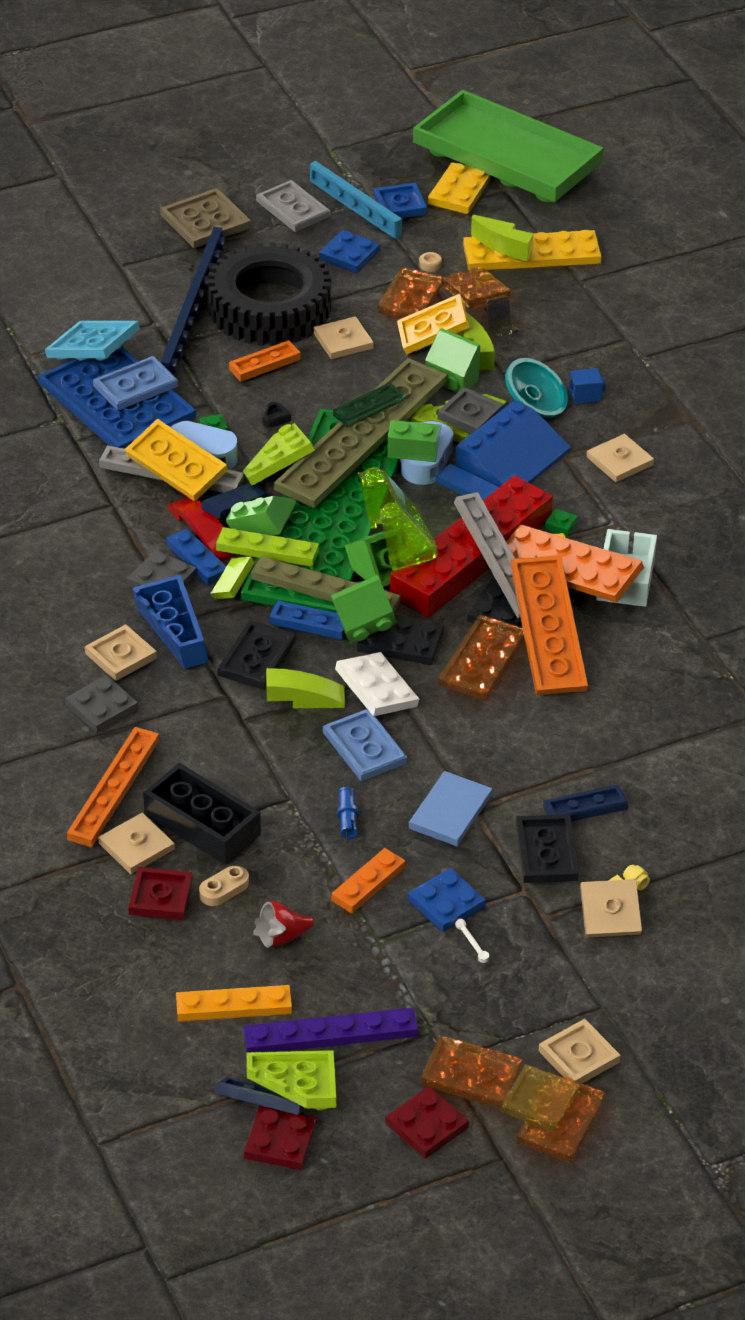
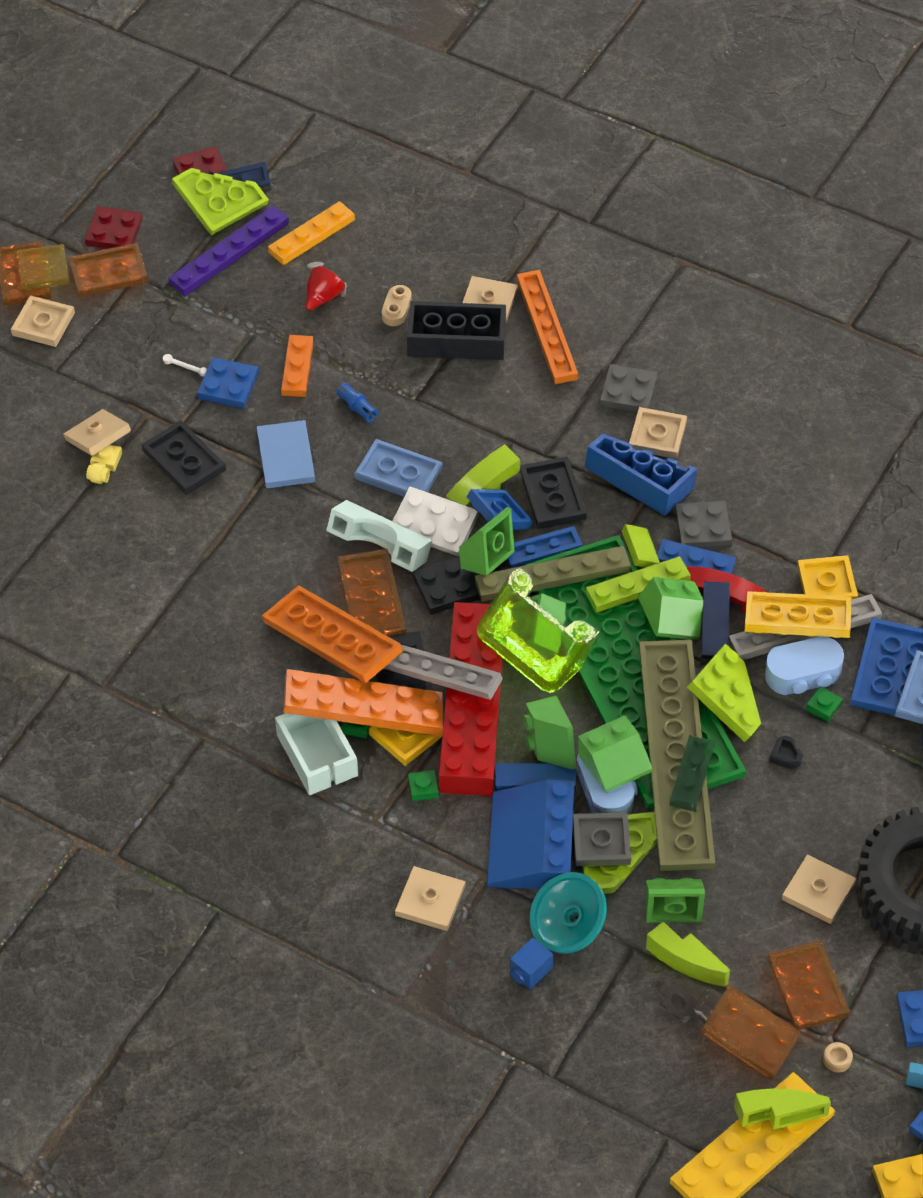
camera: 145 degrees right, 10 degrees up
(118, 489) = (827, 577): none -> yellow plate
(160, 893) = (432, 270): dark red plate -> none
(264, 361) = (856, 805): orange plate -> none
(319, 651) = (492, 502): none -> blue plate
(422, 327) = (739, 937): yellow plate -> none
(441, 480) = (550, 732): none -> bright green slope
(448, 706) = (357, 523): none -> light aqua arch
(588, 803) = (184, 517): dark blue tile -> none

